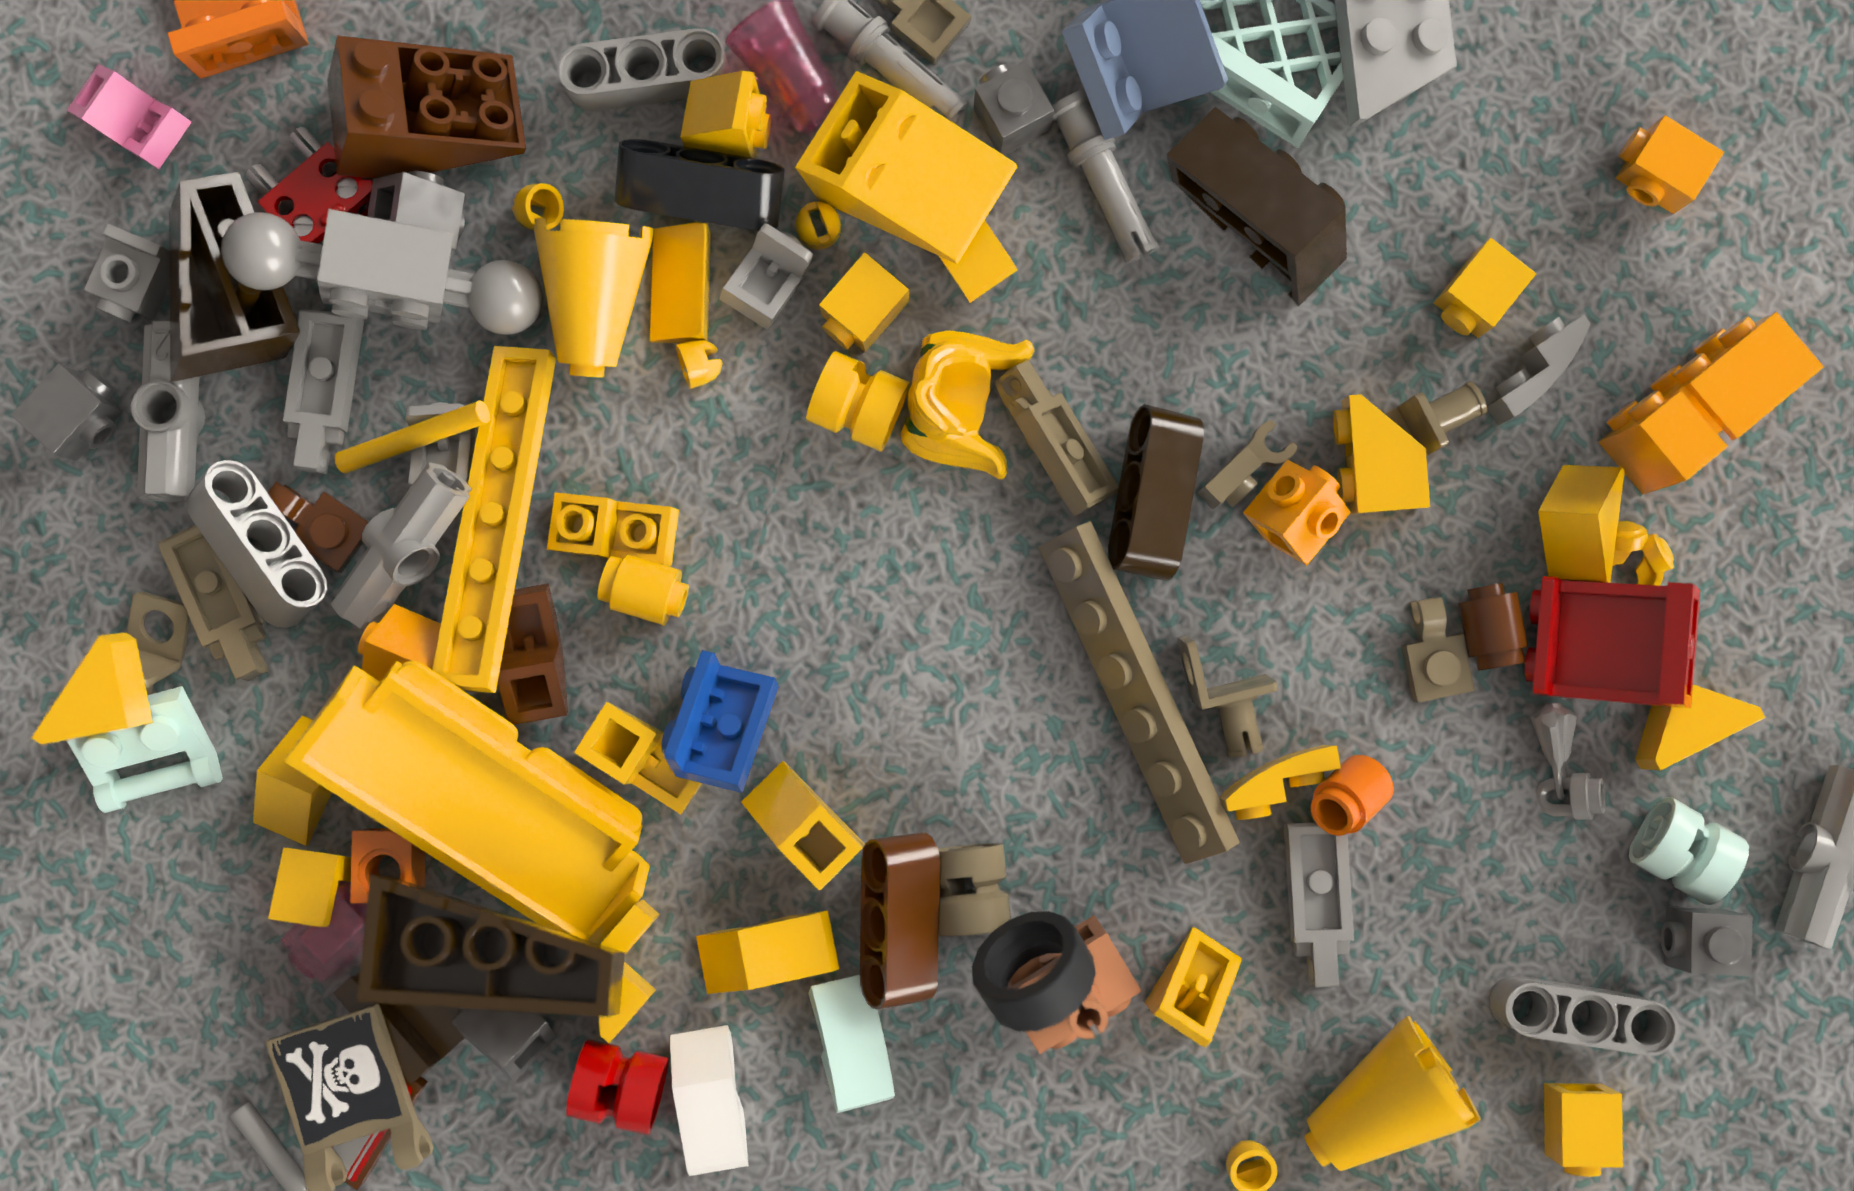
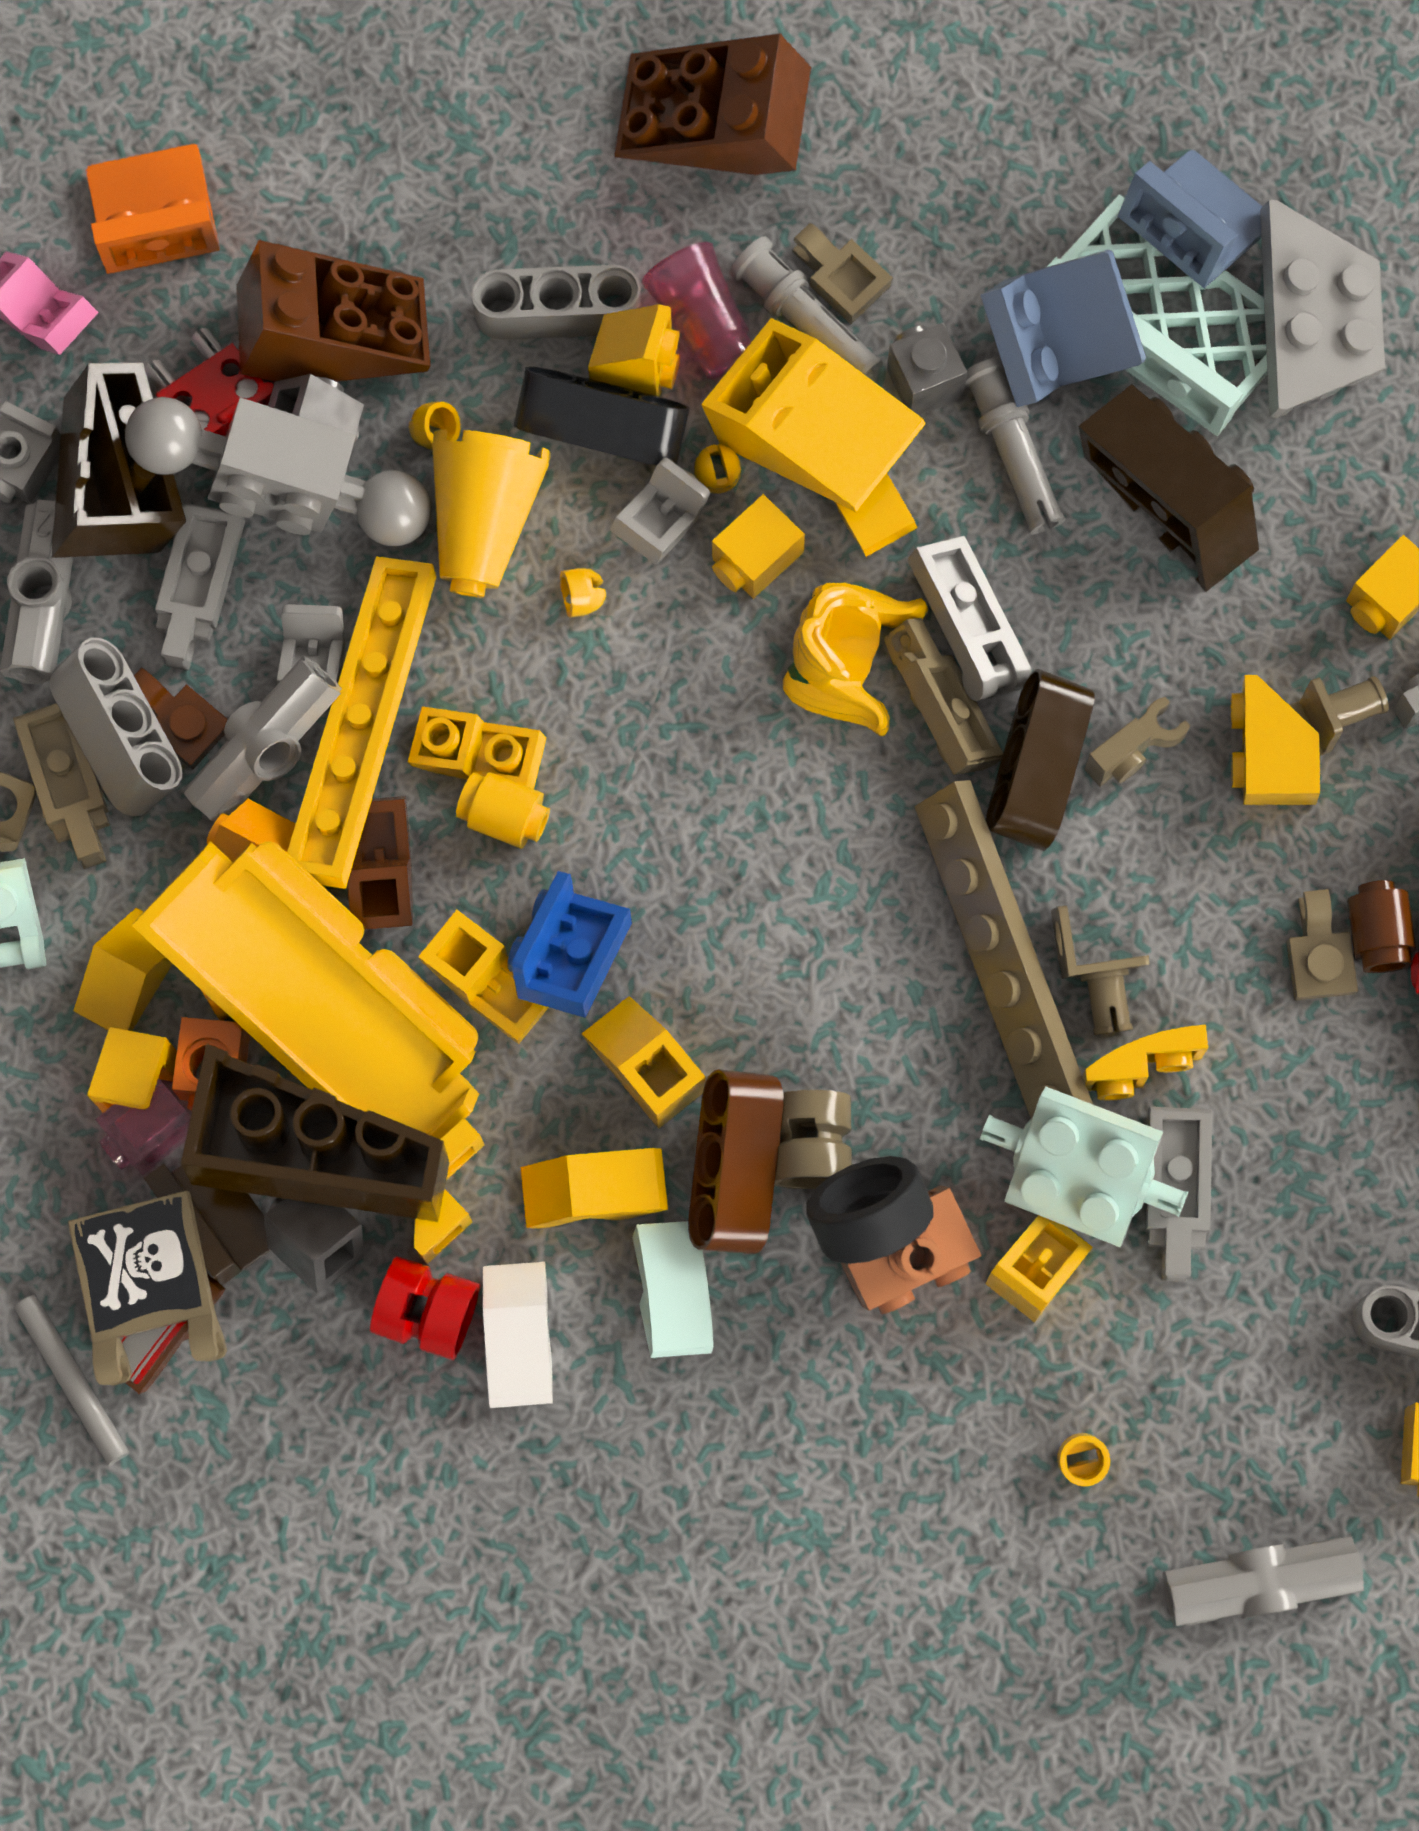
camera: 10 degrees right, 10 degrees down
(412, 437) = (284, 636): yellow bar -> none
(680, 283) = (571, 512): yellow slope -> none
(857, 401) = (741, 641): yellow wheel -> none
(1076, 355) = (970, 617): none -> light grey plate
(1231, 892) = (1083, 1166): none -> light aqua plate
(1298, 510) = (1185, 789): light orange brick -> none
(1351, 795) = (1219, 1080): orange brick -> none
(1390, 1102) = (1233, 1400): yellow cone -> none

